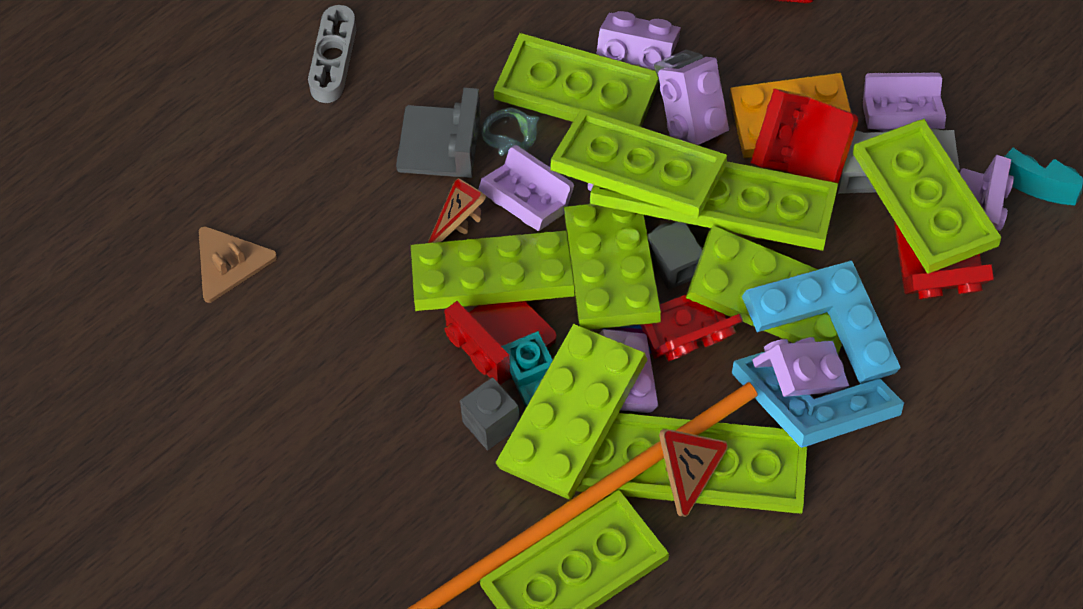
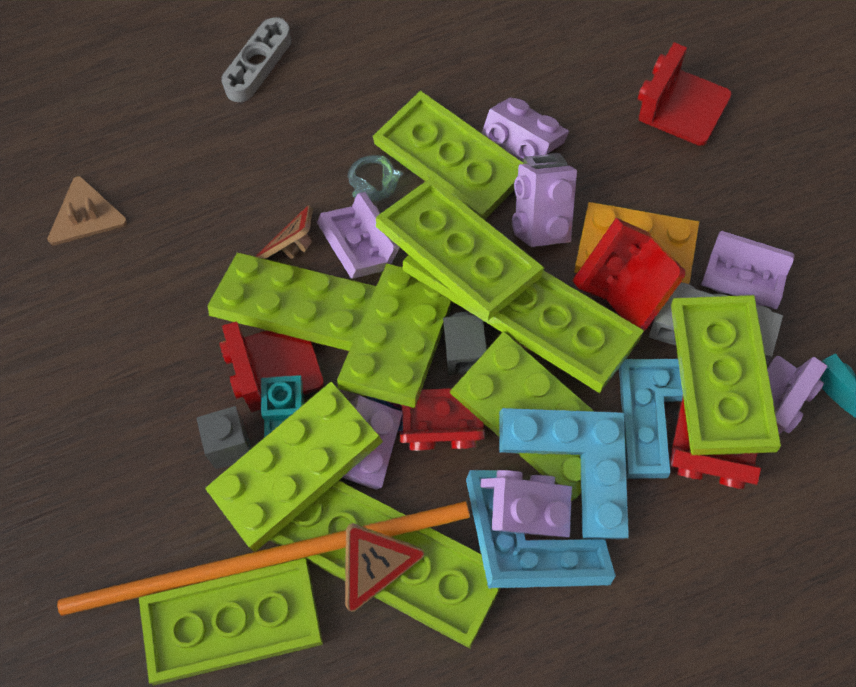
camera: 25 degrees right, 5 degrees up
(440, 138) = (310, 164): dark grey bracket -> none
(858, 239) = (644, 389): none -> medium azure plate

